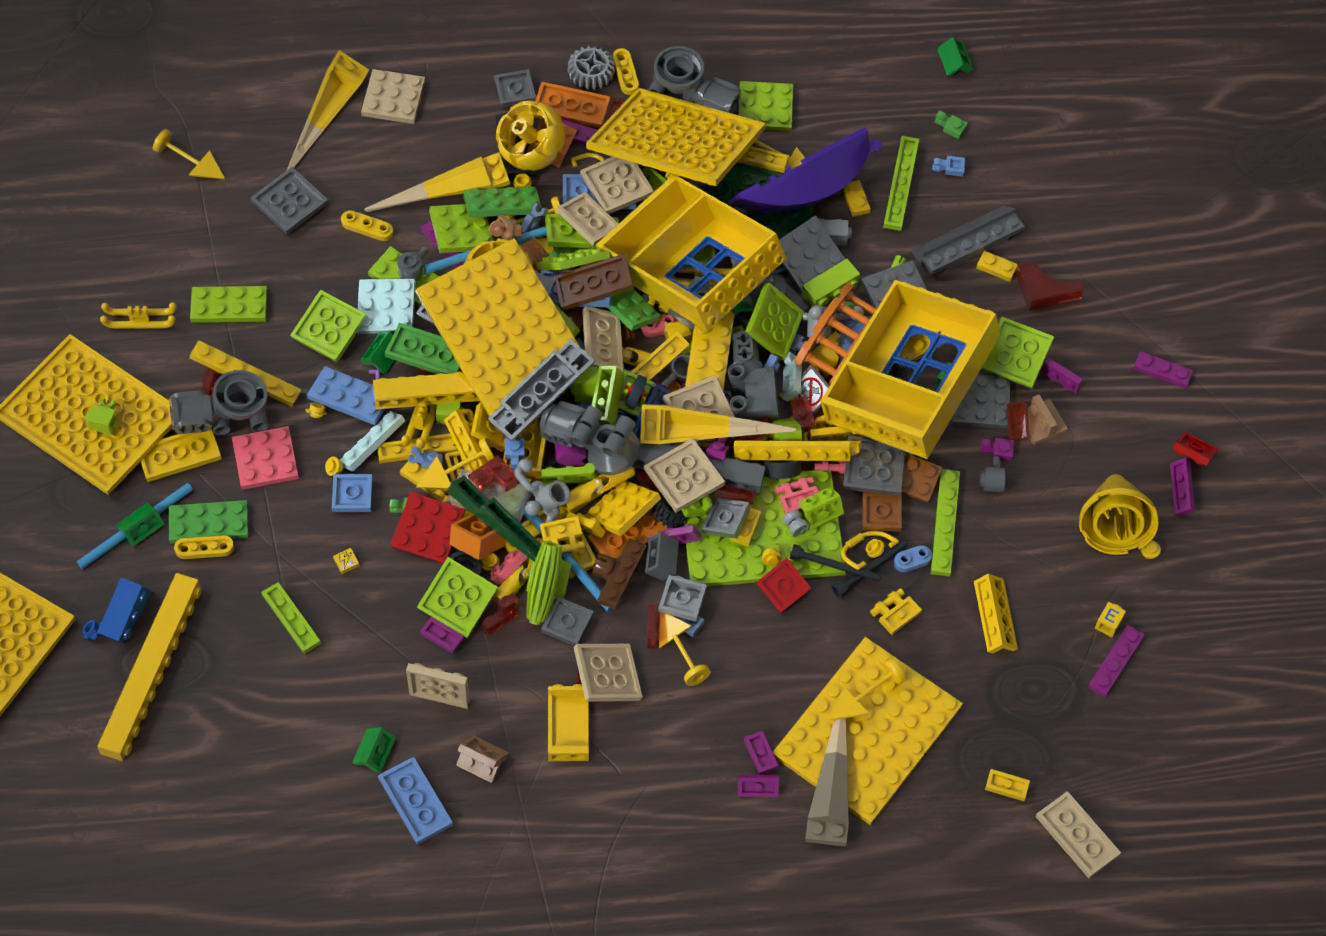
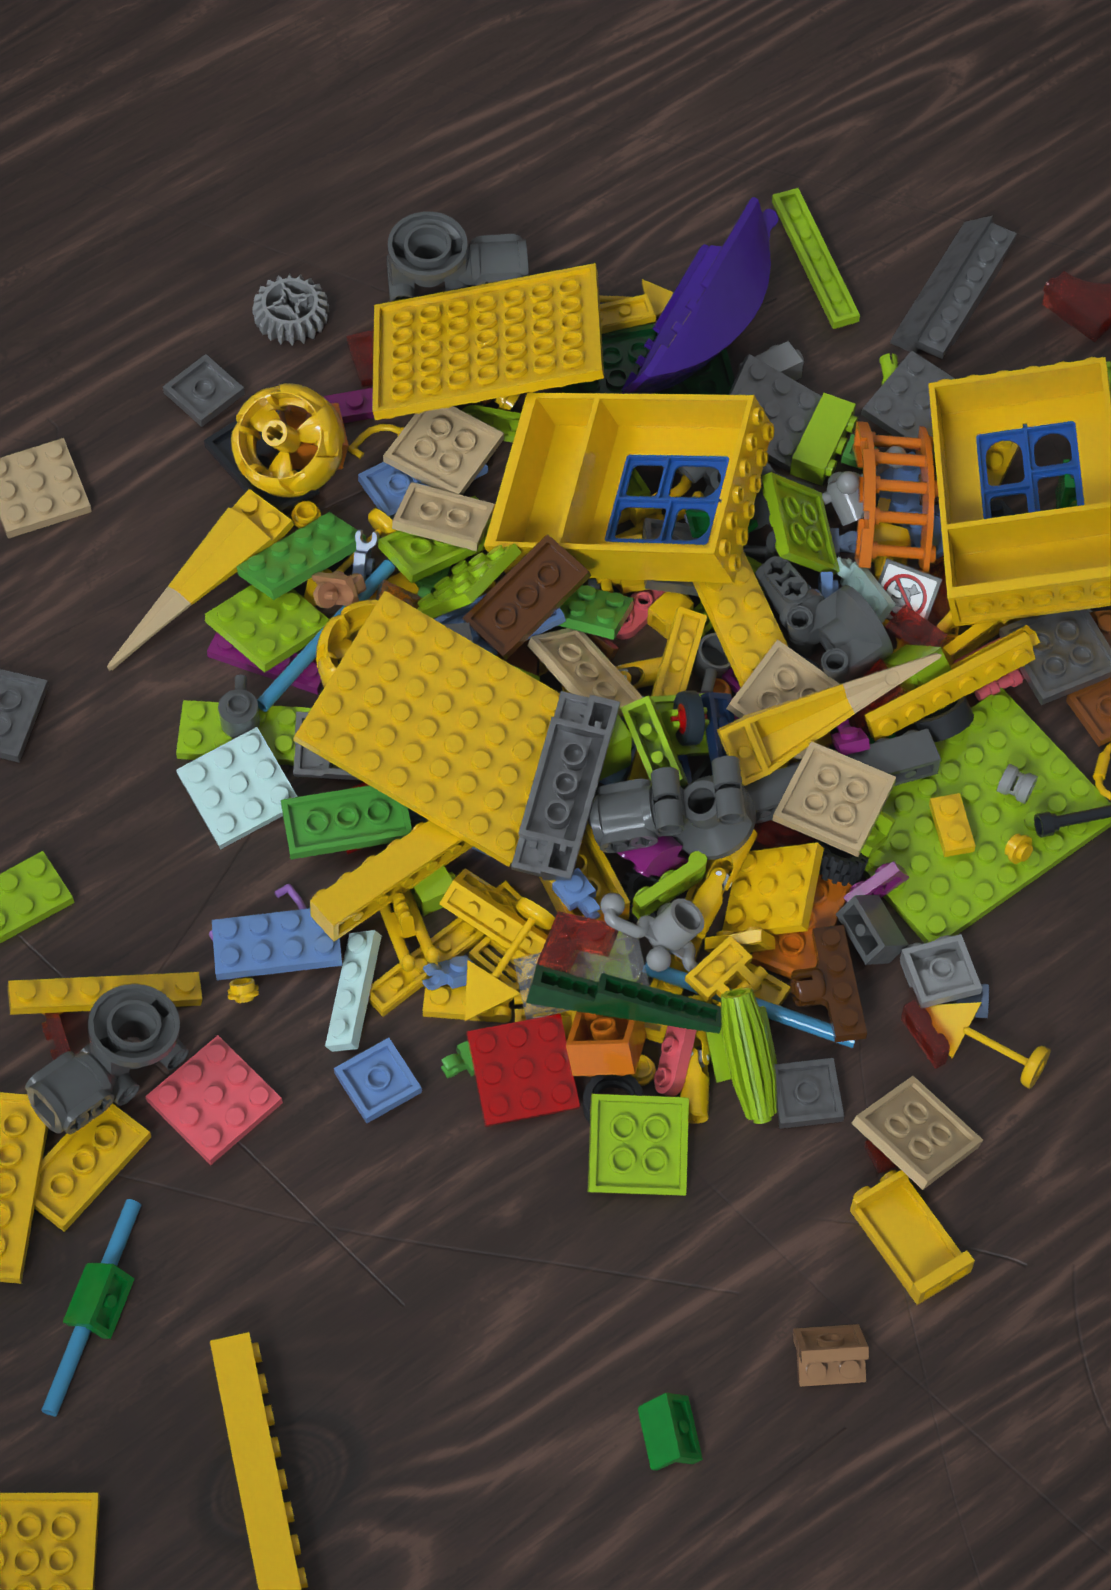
camera: 30 degrees left, 0 degrees up
(91, 629) = (138, 1497): blue plate -> none
(124, 610) = (170, 1442): blue wedge -> none
(195, 546) = (227, 1268): yellow plate -> none
(208, 519) = (196, 1239): bright green plate -> none
(291, 618) = (418, 1310): lime plate -> none
(328, 326) = (178, 859): lime plate -> none
(333, 466) = (324, 1056): yellow plate -> none
(346, 561) = (437, 1183): tile -> none
(372, 230) = (140, 691): yellow plate -> none
(376, 352) = (272, 857): green panel -> none
(415, 800) = (781, 1471): medium blue plate -> none
(438, 685) = (708, 1285): tan plate -> none
(442, 635) = (649, 1212): magenta plate -> none
(485, 429) = (510, 885): yellow plate -> none
(507, 611) = (717, 1124): clear red plate -> none
(574, 104) = (321, 366): orange plate -> none
(625, 66) = (337, 283): yellow plate -> none
(726, 518) = (924, 828): flat silver plate -> none
(737, 494) = (922, 787): clear red plate -> none
(767, 104) = (564, 239): lime plate -> none
(783, 585) = (1058, 878): red plate -> none
(790, 499) = (999, 751): coral plate -> none
(821, 507) = (1036, 742): lime bracket -> none
(856, 198) = (777, 313): yellow plate -> none
(952, 165) = (863, 201): medium blue plate -> none
(953, 126) = (824, 148): bright green plate -> none
(954, 56) = (762, 59): green panel -> none
(996, 266) = (1014, 305): yellow plate -> none

